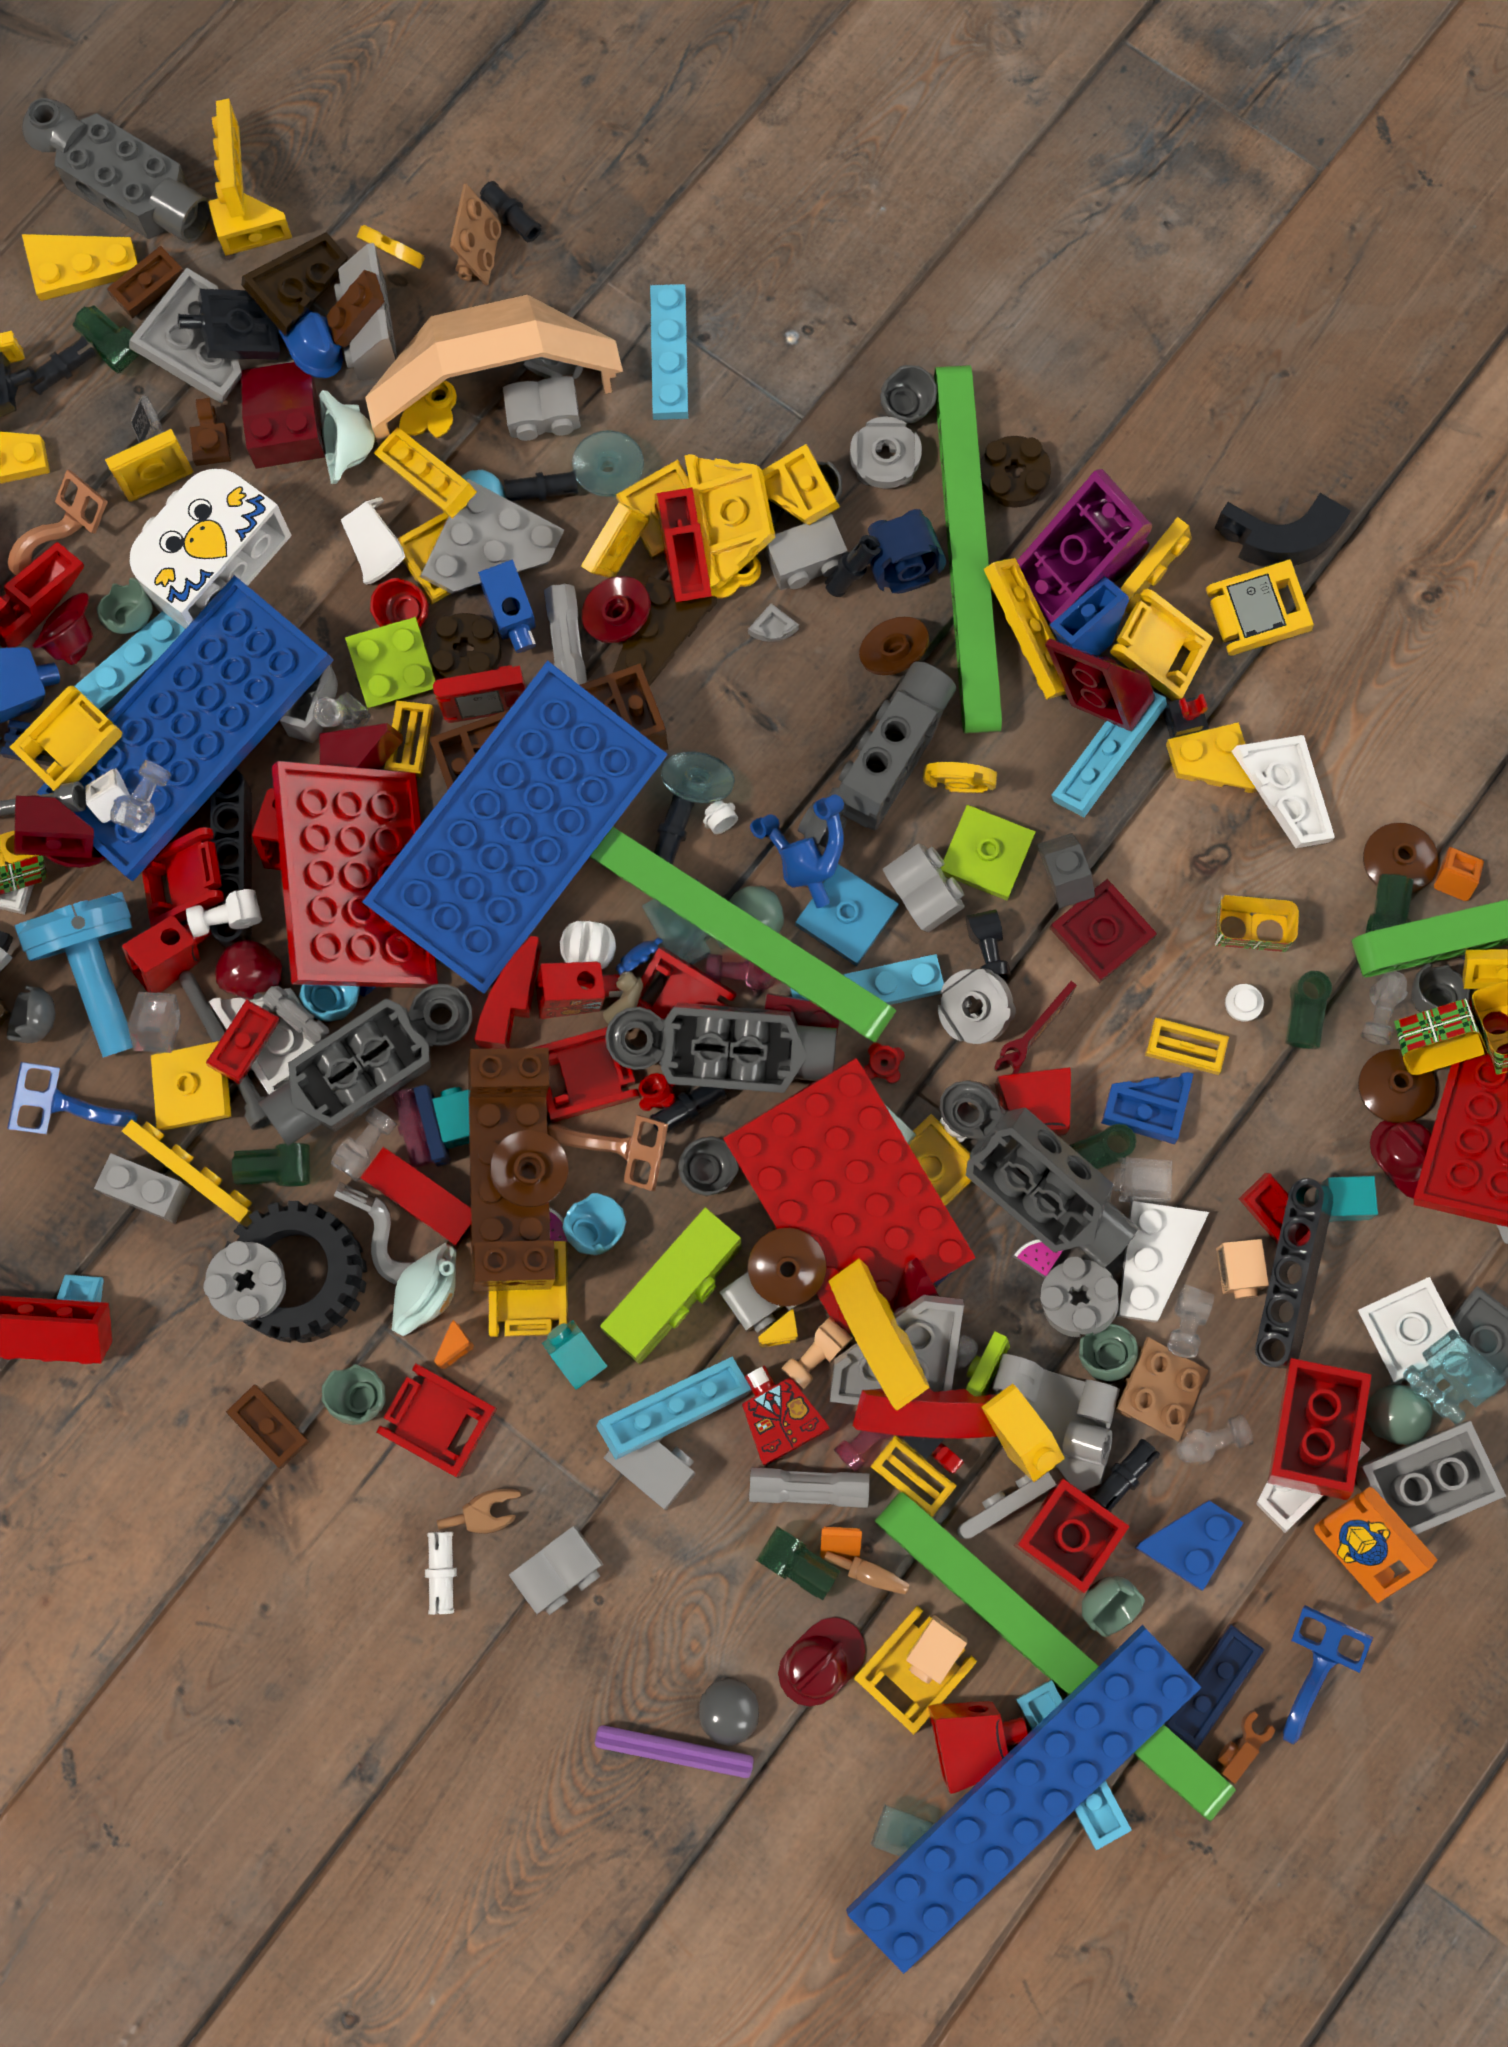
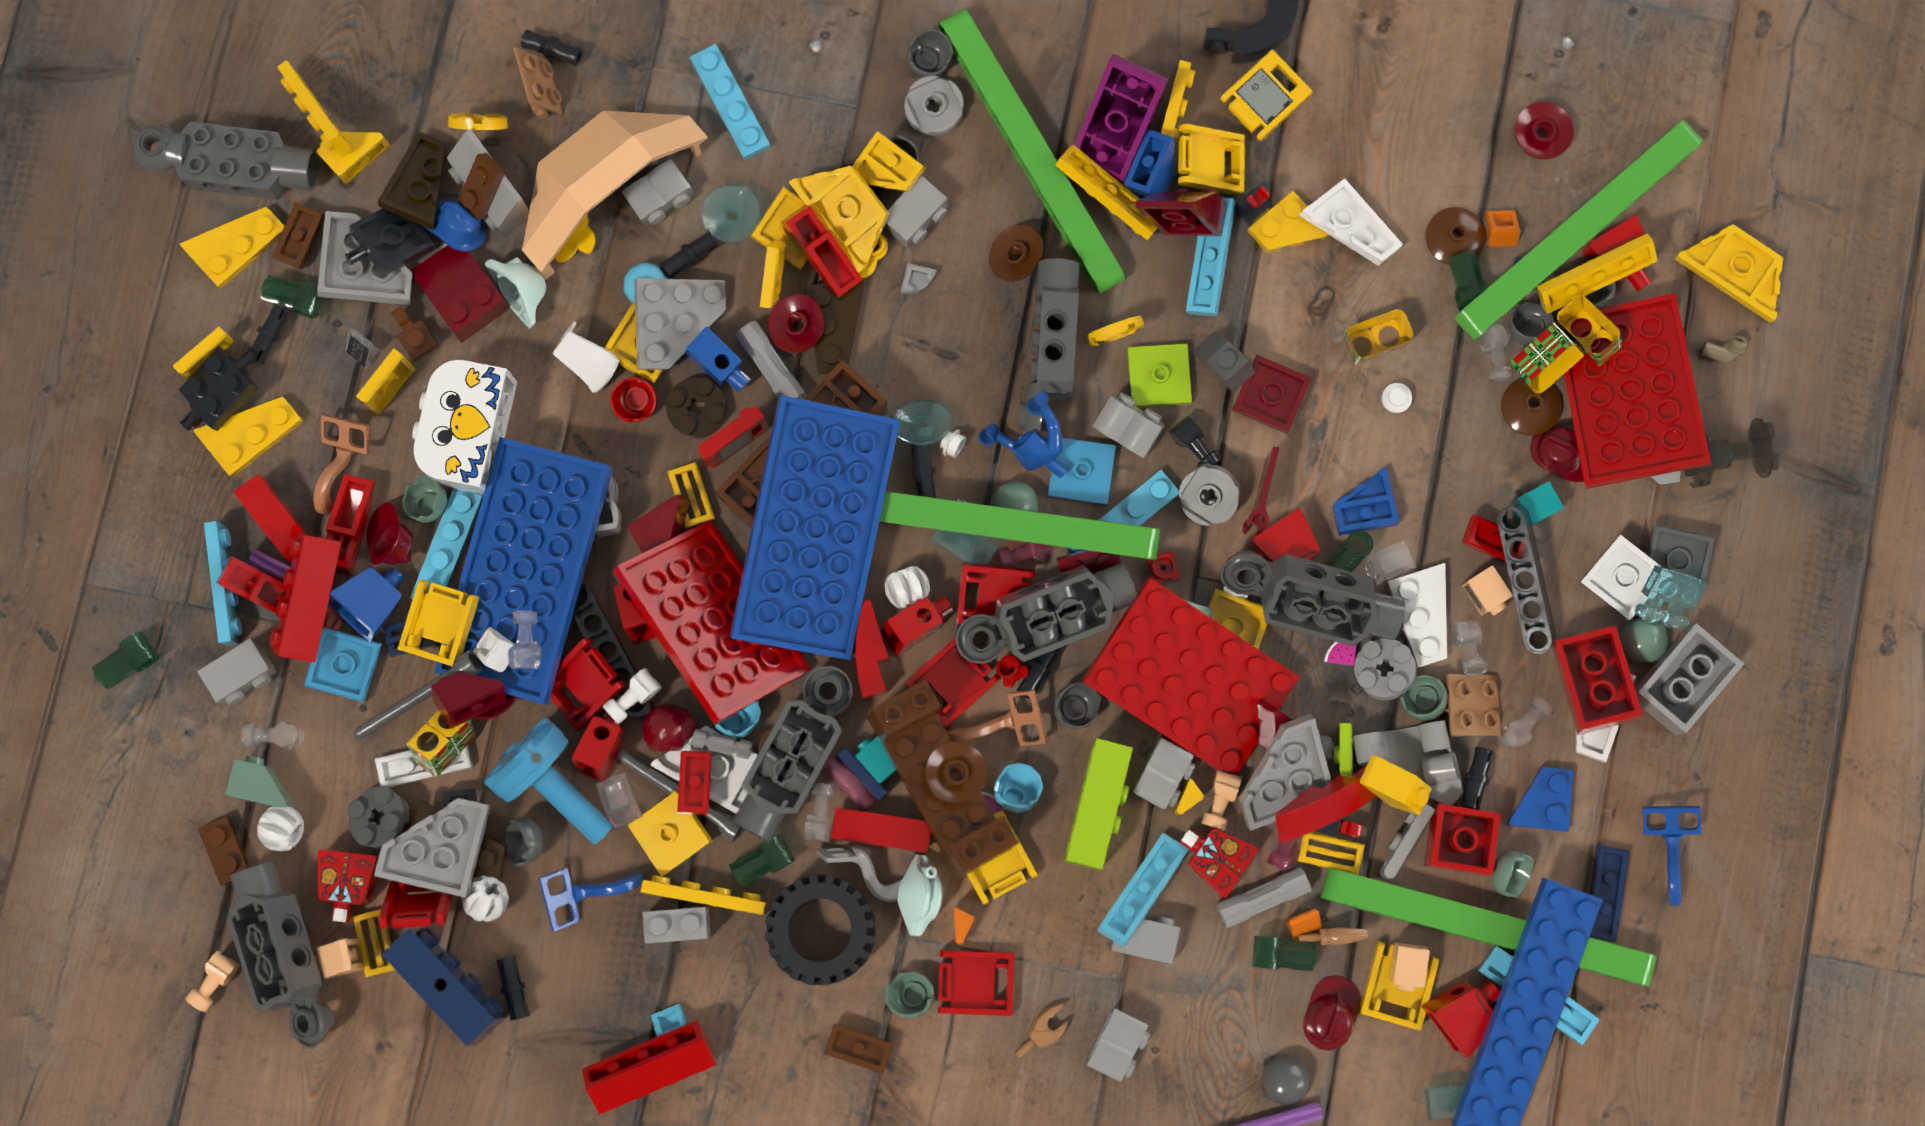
camera: 30 degrees left, 5 degrees up
(238, 1259) = (806, 969): light grey plate -> none
(343, 711) = (635, 501): clear leg -> none
(391, 662) = (649, 444): lime plate -> none
(425, 472) = (600, 287): yellow plate -> none
(440, 1572) = (1036, 1087): white pin -> none
(573, 1354) = (1051, 887): teal brick -> none
(631, 988) = (958, 604): dark tan arm -> none
(638, 955) = (947, 577): blue piece -> none
(784, 1246) = (1158, 747): reddish brown dish -> none
(852, 565) = (956, 207): black pin -> none
(878, 1334) = (1265, 768): yellow slope -> none
(907, 552) = (988, 178): dark blue brick -> none
(1025, 454) = (1038, 57): dark brown plate -> none
(1184, 1060) = (1345, 454): yellow tile -> none
(1238, 1756) = (1647, 932): dark orange plate -> none
(1307, 1014) = (1446, 385): clear green piece -> none
(1372, 1542) = (1667, 737): orange container -> none

